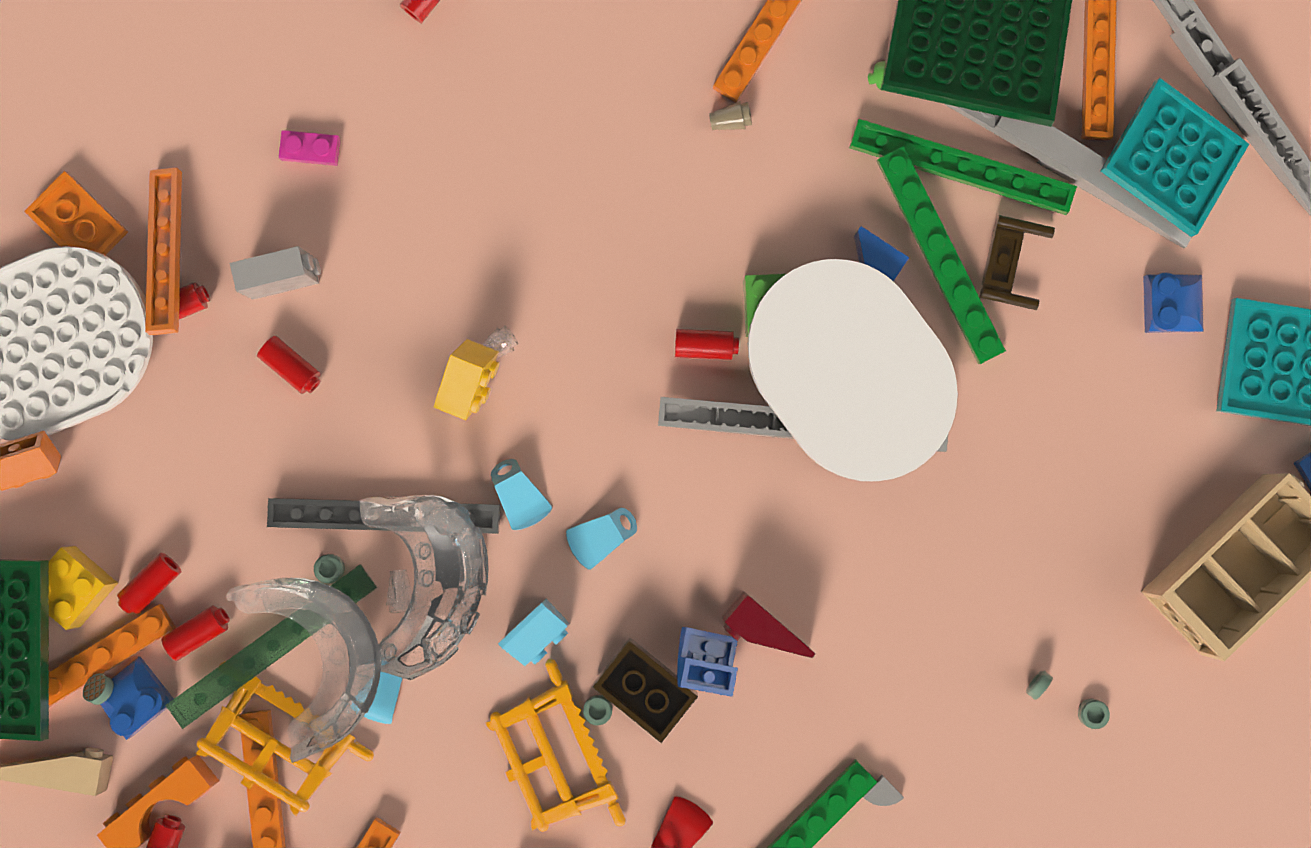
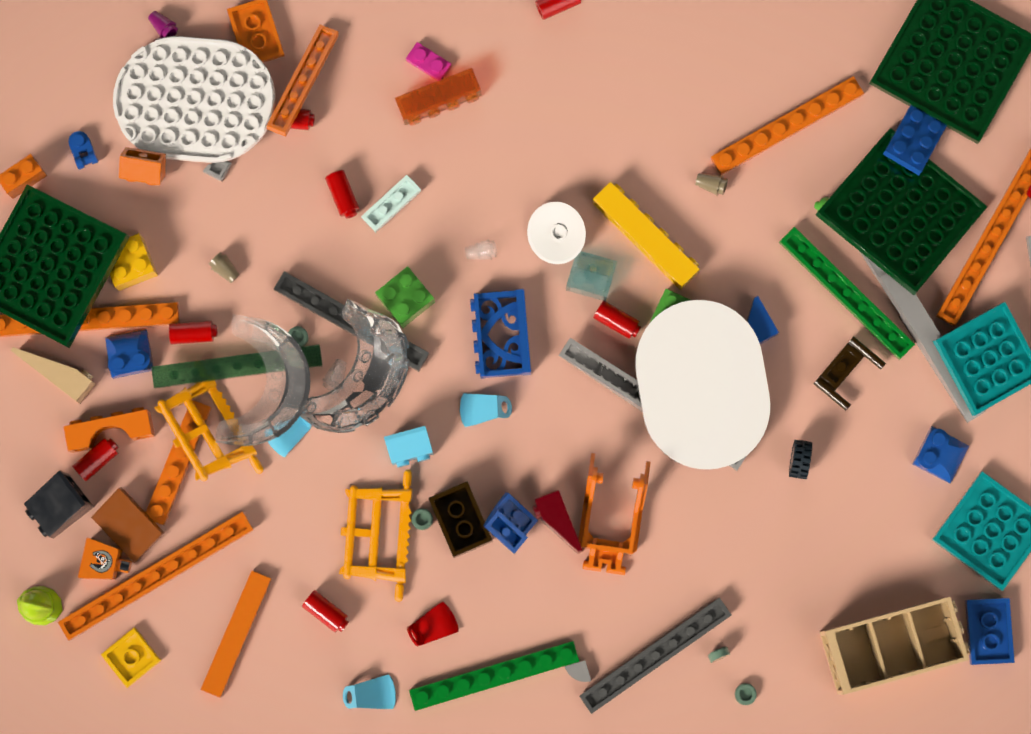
camera: 30 degrees right, 5 degrees down
(98, 689) = (112, 335): sand green tile -> none
(122, 415) = (218, 170): none -> light grey tile
(148, 584) = (178, 285): red brick -> none
(192, 531) = (224, 267): none -> dark tan cone
(275, 273) = (366, 131): light grey brick -> none
(344, 184) = (438, 97): none -> clear orange brick
(355, 345) = (391, 203): none -> light aqua plate
(433, 452) = (405, 297): none -> bright green brick
(467, 379) = (452, 261): yellow brick -> none
(519, 496) = (444, 355): medium azure piece -> none
(575, 395) = (515, 309): none -> blue fence
(576, 276) = (556, 232): none -> white hat
(645, 306) = (591, 275): none -> clear light blue slope
(684, 222) = (645, 235): none -> yellow brick
(844, 629) = (610, 551): none -> orange piece
(941, 255) = (801, 342): green plate -> none
(963, 727) = (655, 655): none -> dark grey plate
(1015, 398) = (800, 459): none -> black wheel

